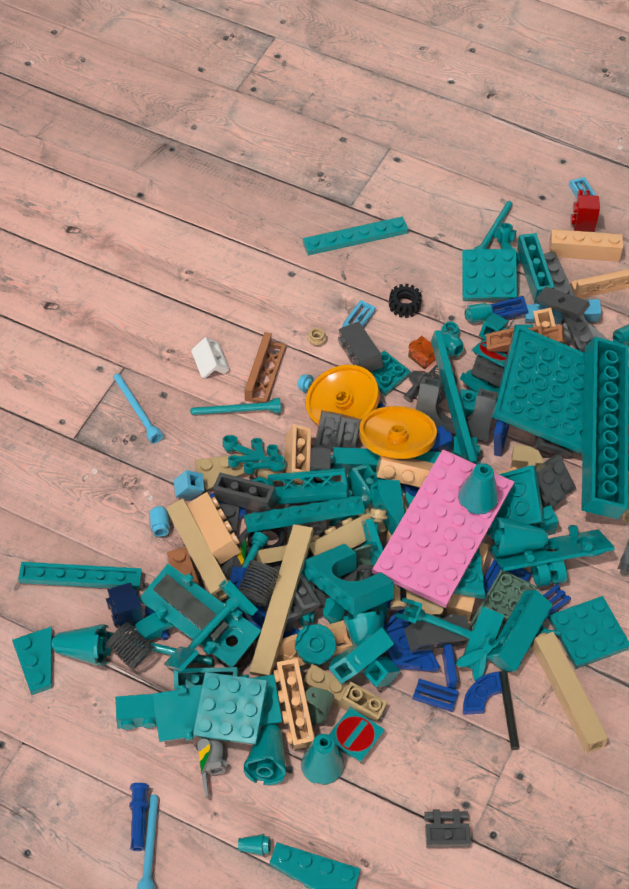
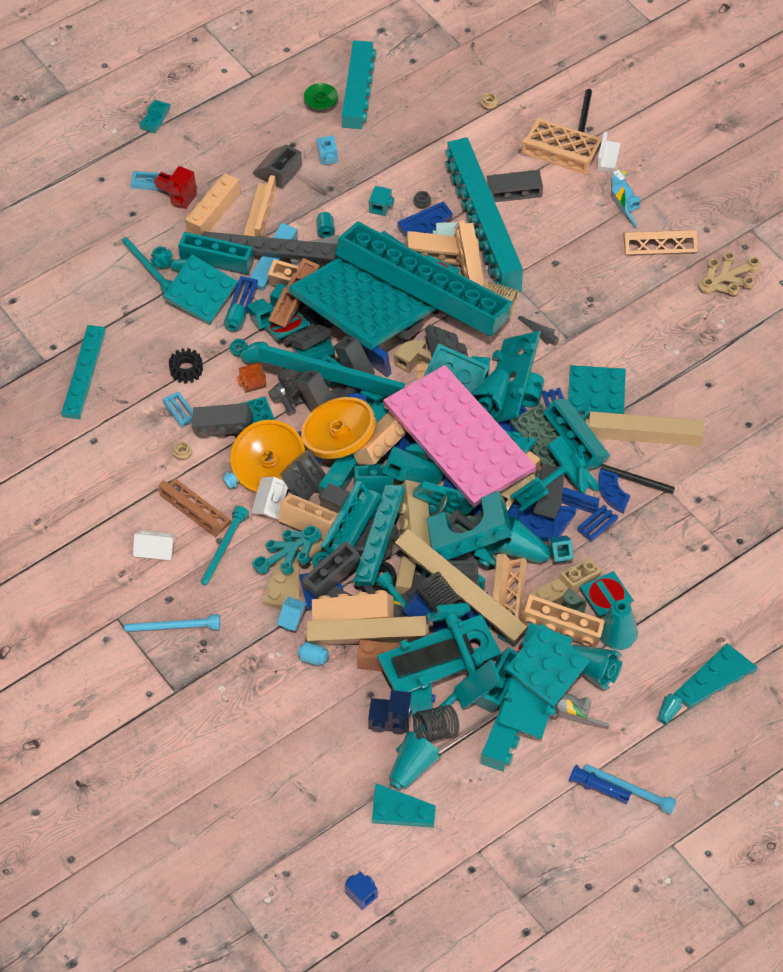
camera: 60 degrees left, 0 degrees up
(79, 575) = (334, 740): teal plate -> none
(306, 417) = (268, 497): none -> white panel
(315, 644) = (512, 582): teal tile -> none
(360, 655) = (545, 554): teal slope -> none
(378, 514) = (416, 478): tan plate -> none
(447, 835) = (727, 570): dark grey plate -> none
(479, 490) = (448, 388): teal cone -> none
(562, 302) = (286, 241): dark grey tile -> none

